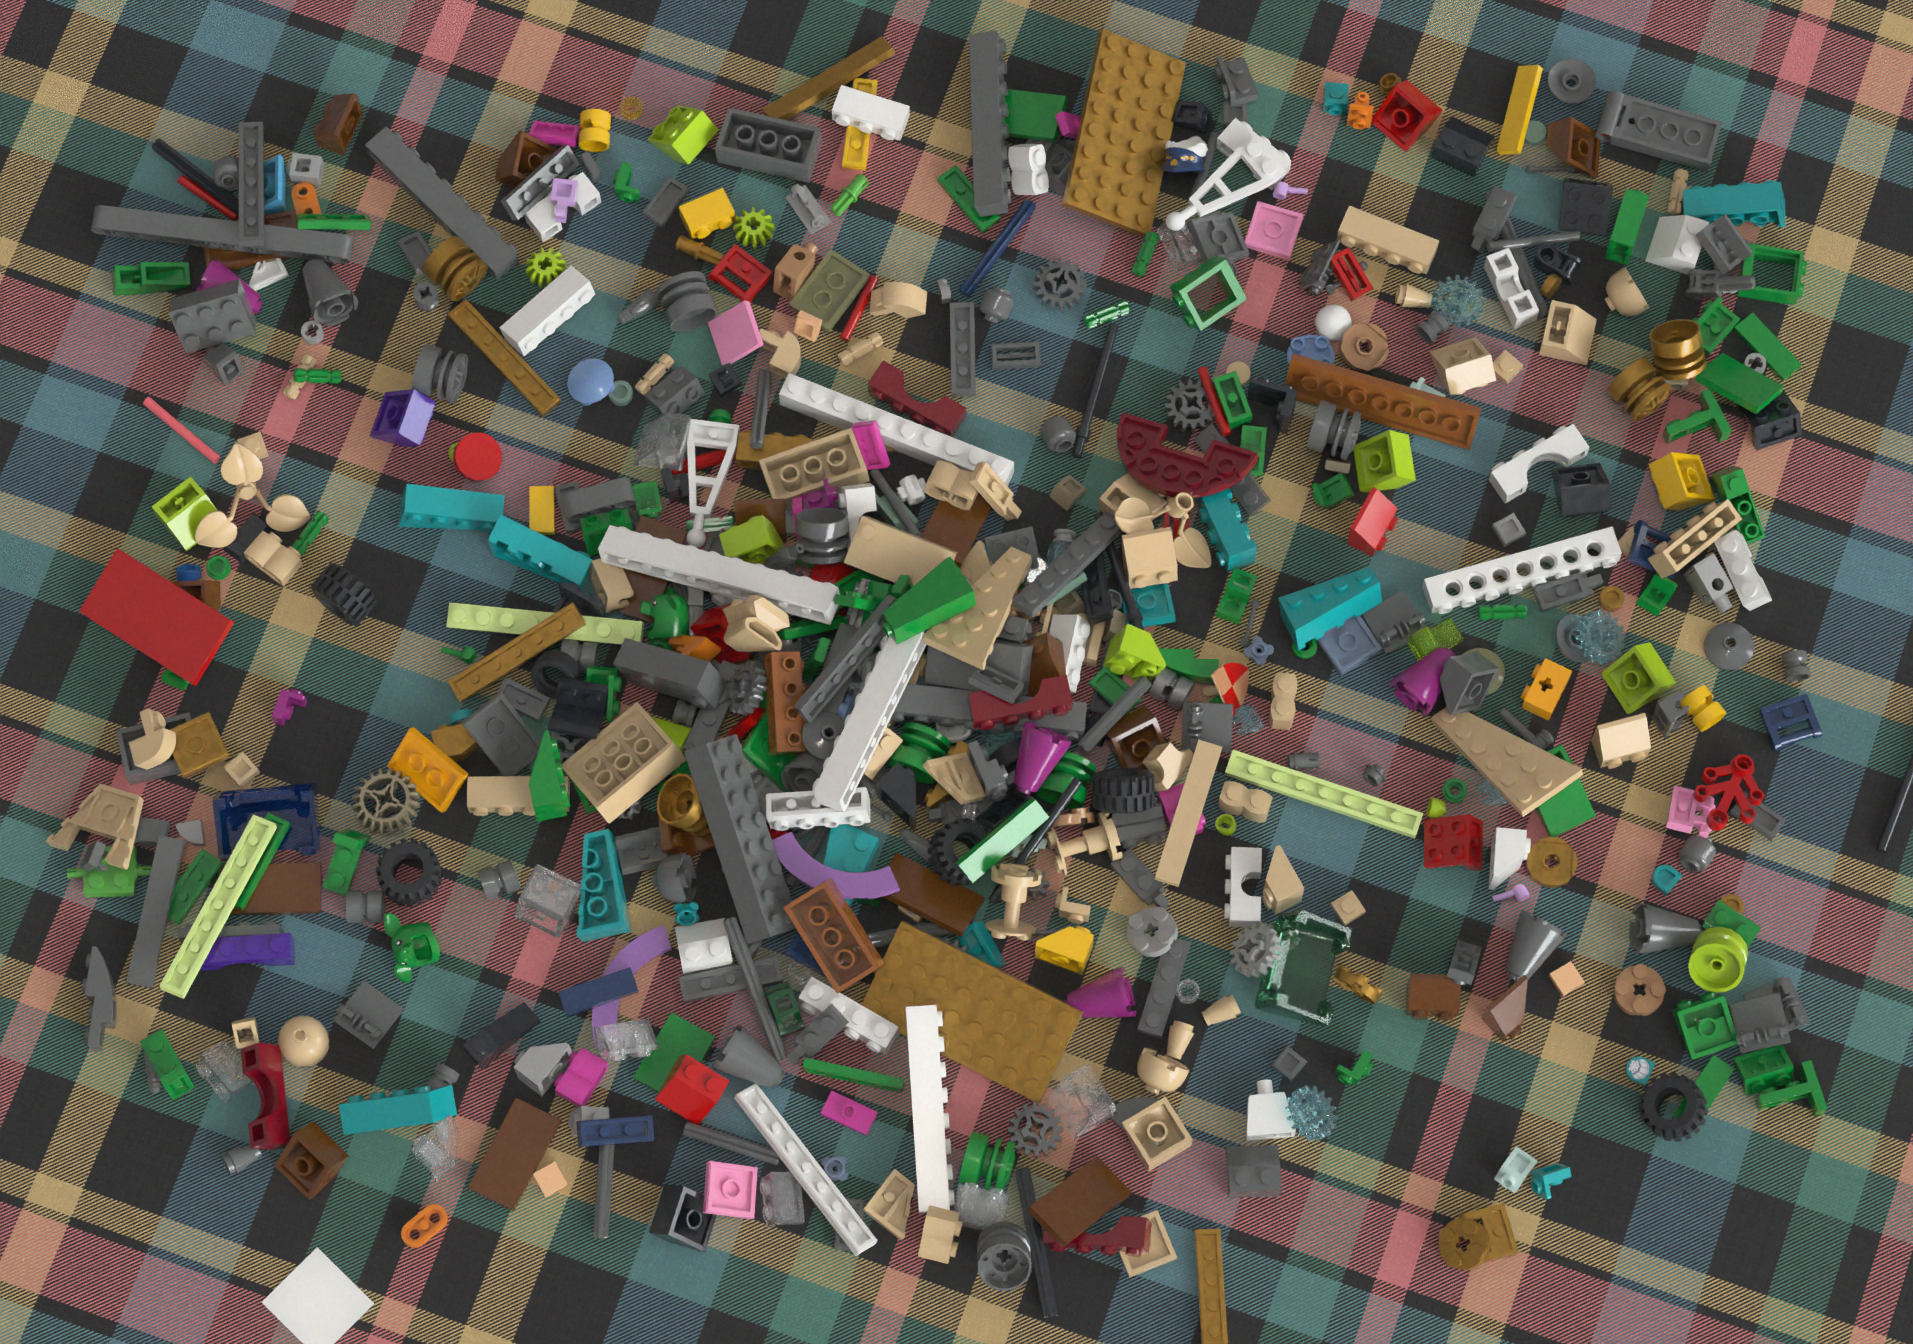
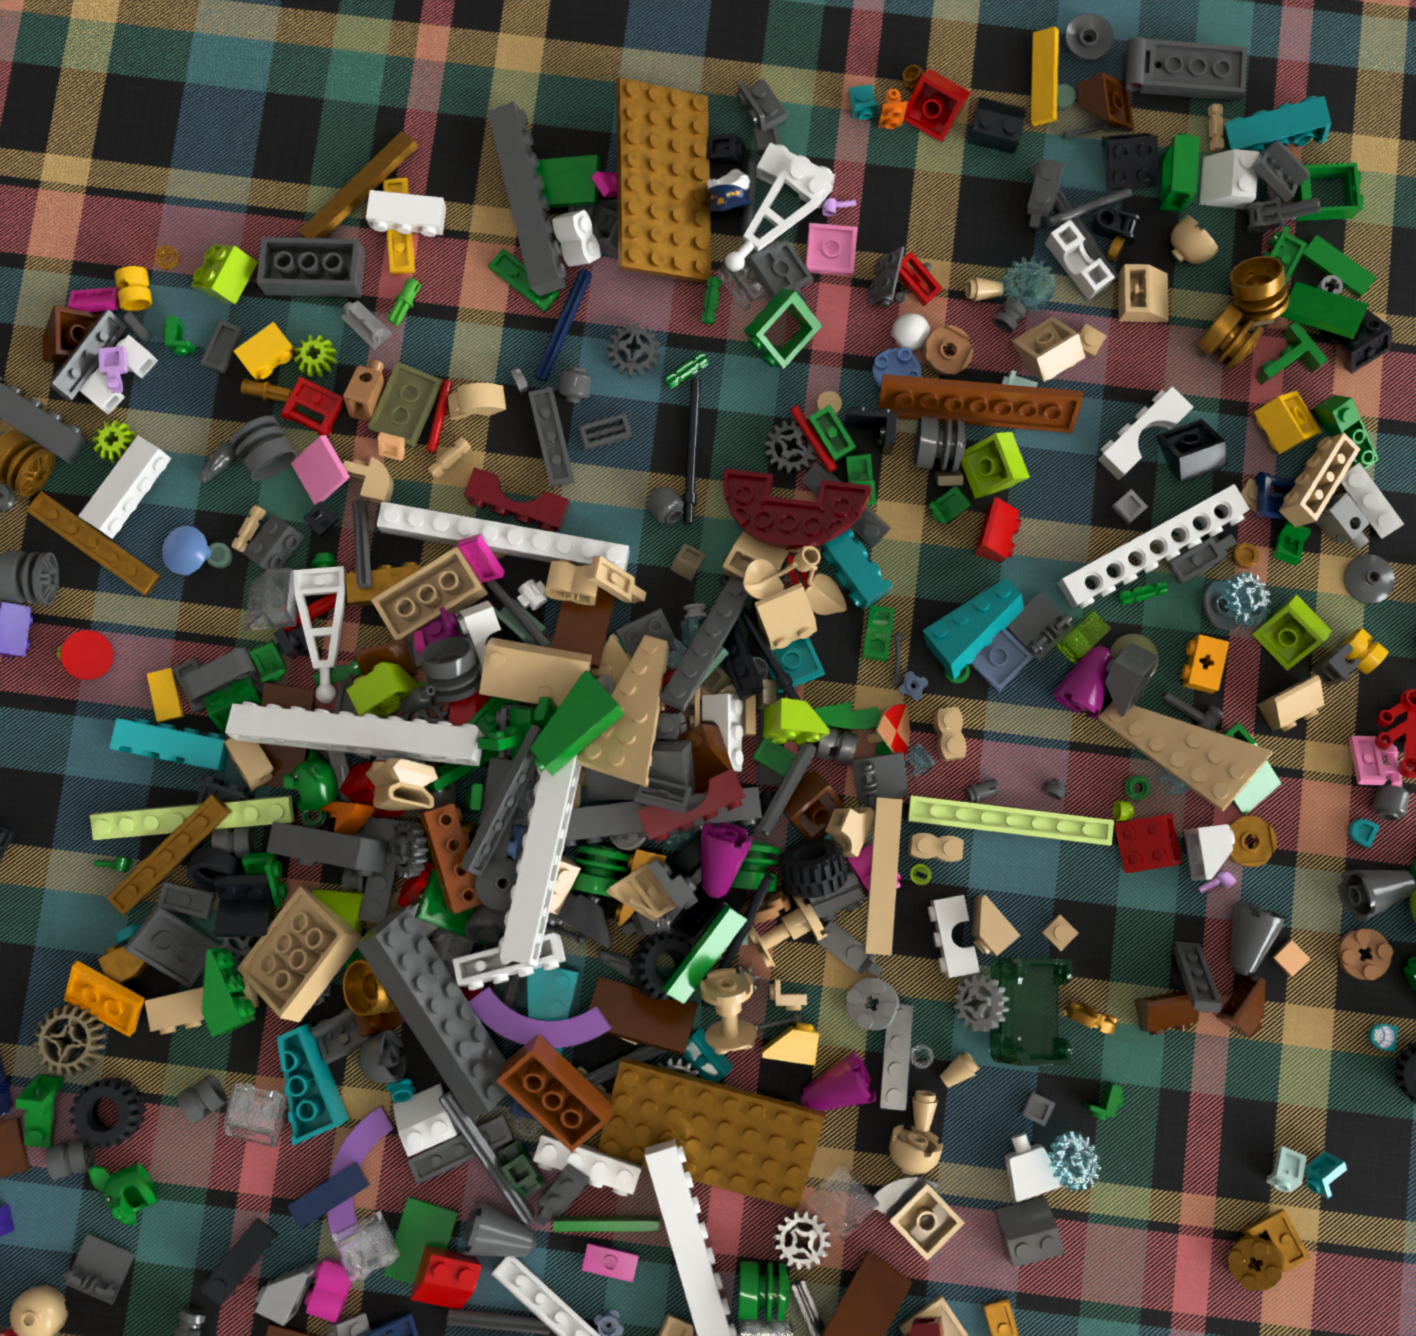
camera: 15 degrees left, 10 degrees up
(449, 508) = (68, 717): teal wedge -> none
(1387, 240) = (947, 236): tan brick -> none

